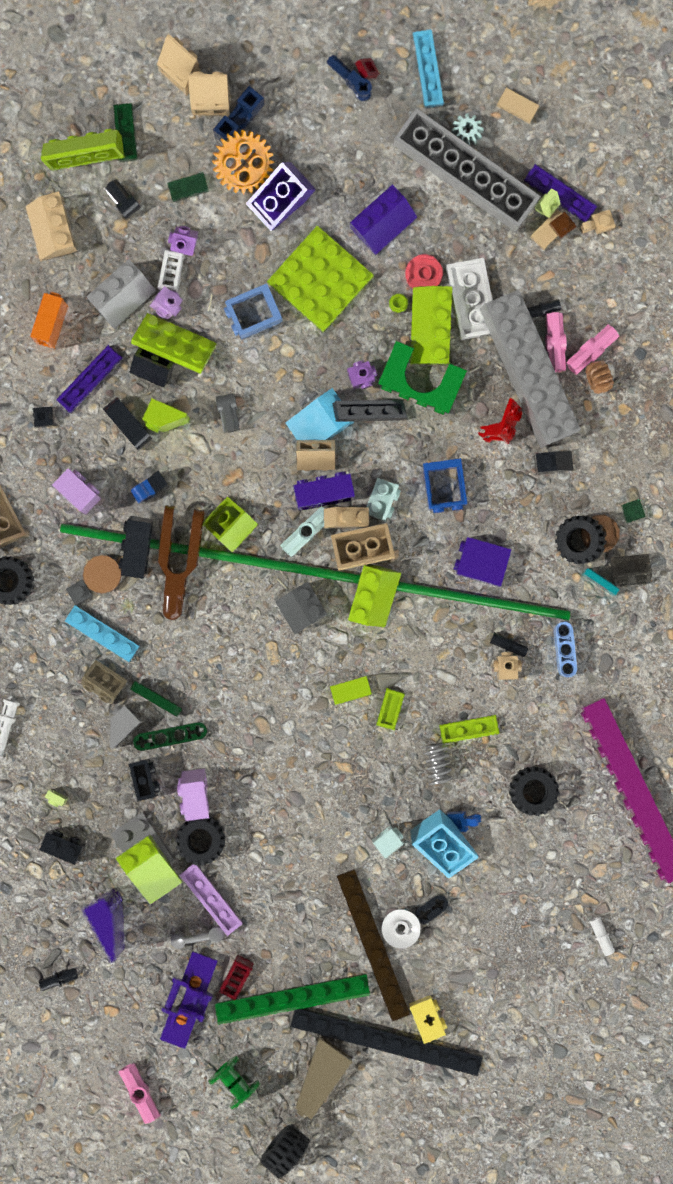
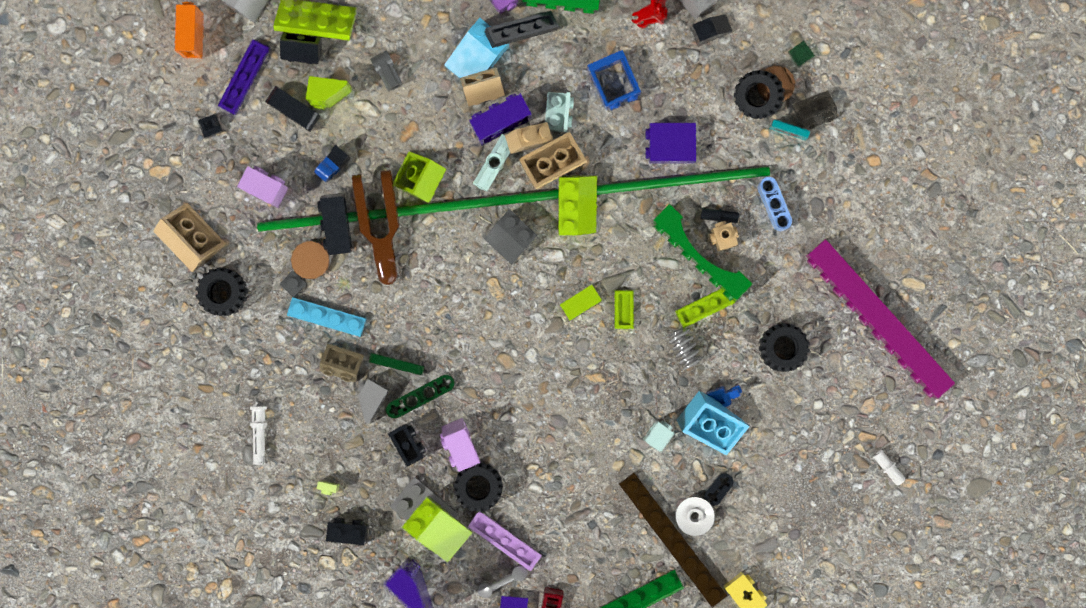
camera: 15 degrees left, 0 degrees up
(458, 639) = (731, 283): none -> green arch

